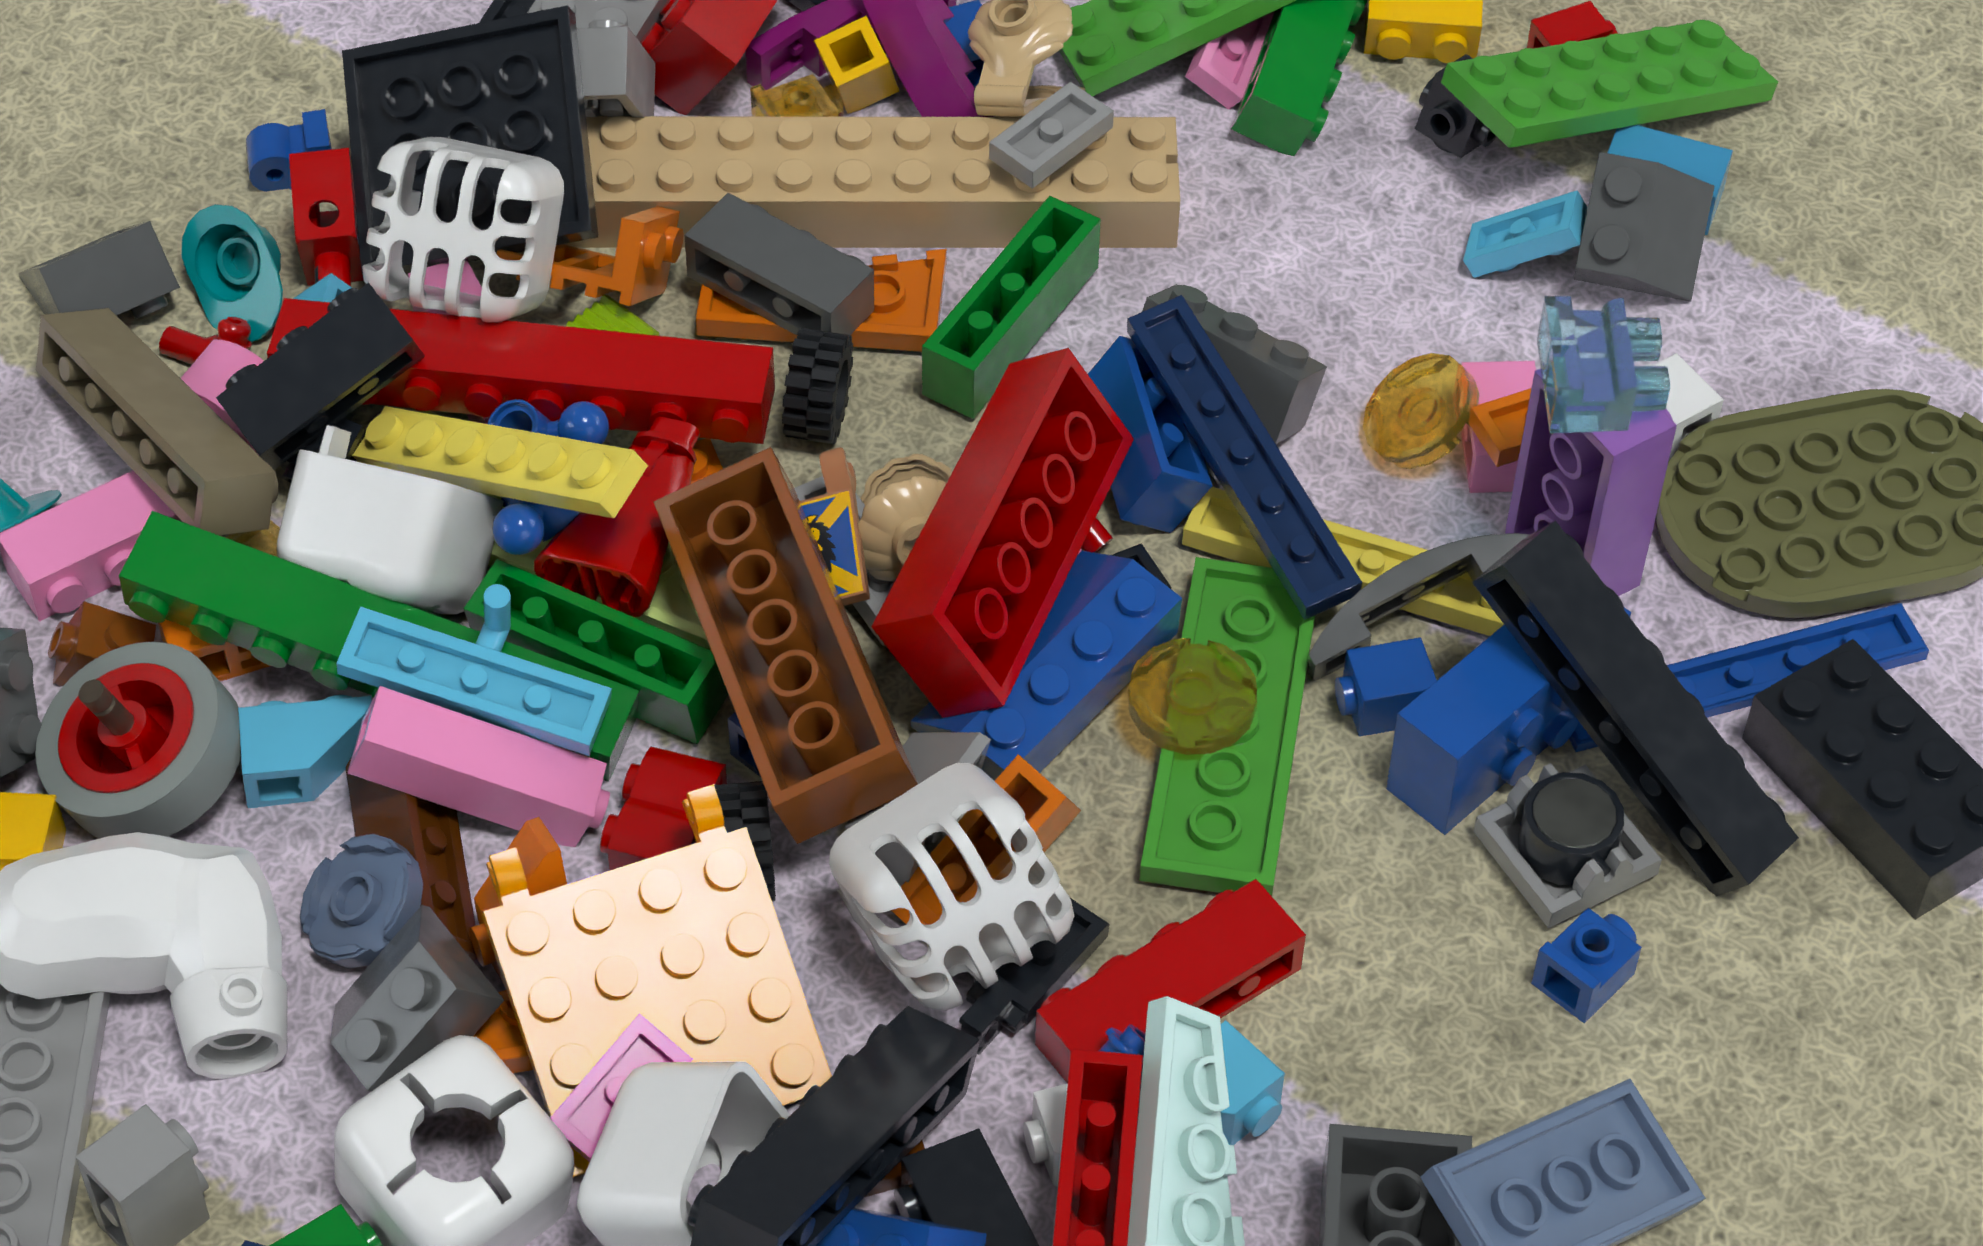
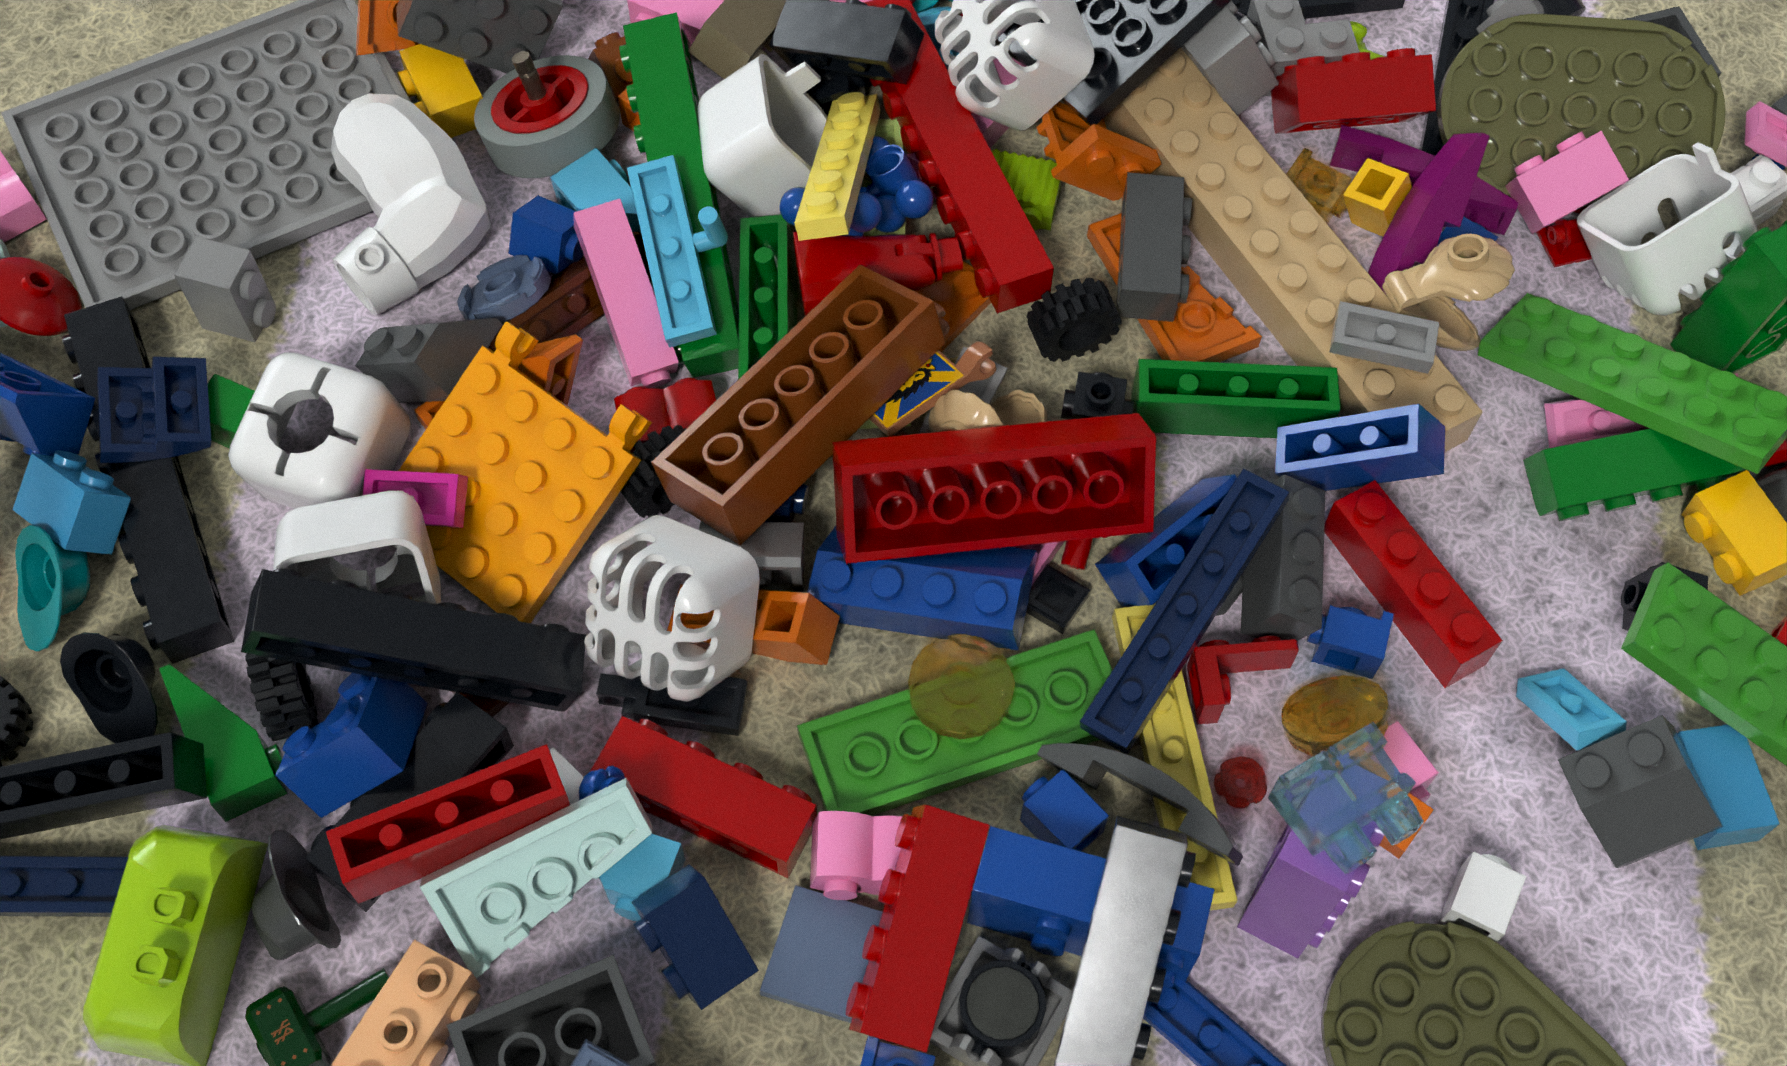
camera: 60 degrees right, 10 degrees up
(312, 819) = (545, 232): none -> blue brick
(936, 420) = (1096, 396): none -> black brick
(1158, 225) = (1362, 448): none -> blue brick
(1319, 279) = (1411, 584): none -> red brick
(1329, 493) = (1215, 658): none -> red bracket
(1332, 870) = (852, 853): none -> bright pink brick
(1340, 1053) = (693, 936): none -> dark blue brick
(1353, 356) = (1351, 640): none -> blue brick
(1415, 965) = (819, 953): none -> sand blue tile
(1434, 516) = (1246, 770): none -> clear red plate
(1456, 841) = (918, 927): none -> red brick

